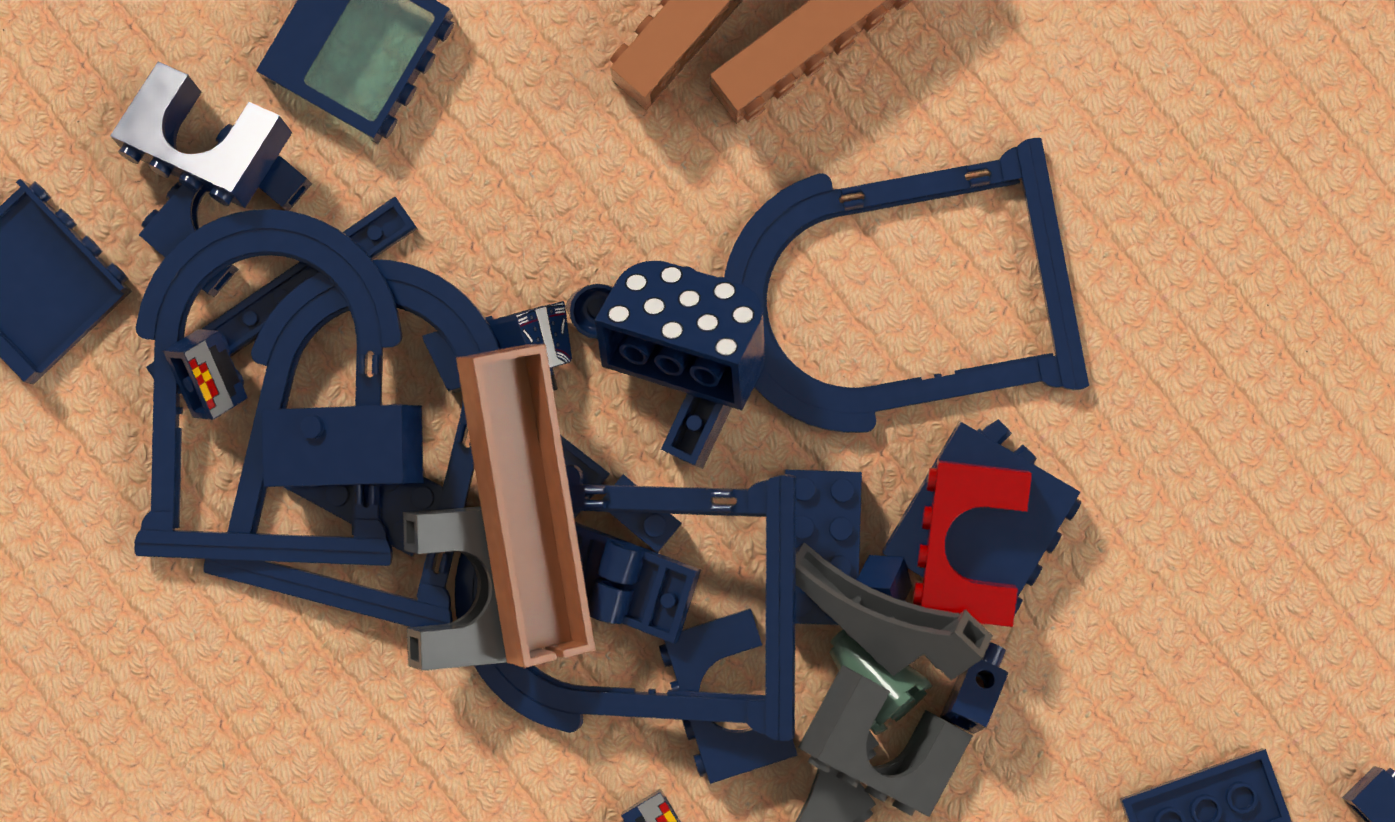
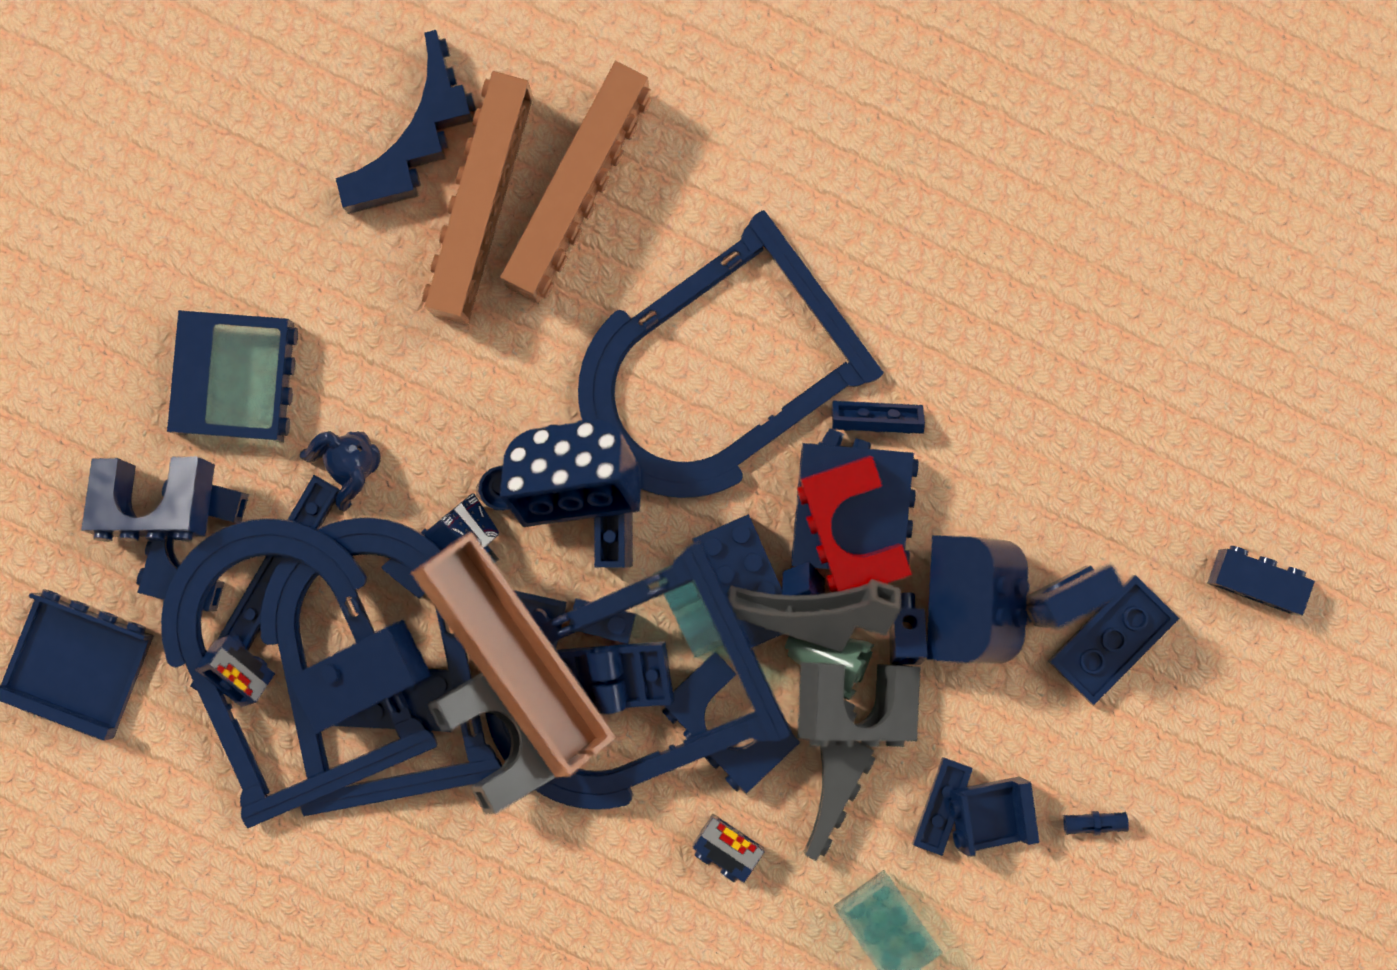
camera: 25 degrees left, 0 degrees up
(437, 198) = (345, 461): none -> dark blue hair
(744, 558) = (692, 618): none -> clear light blue brick
(1058, 432) = (878, 417): none -> dark blue plate
(1072, 690) = (976, 600): none -> dark blue brick
(1182, 738) = (1074, 596): none -> dark blue arch

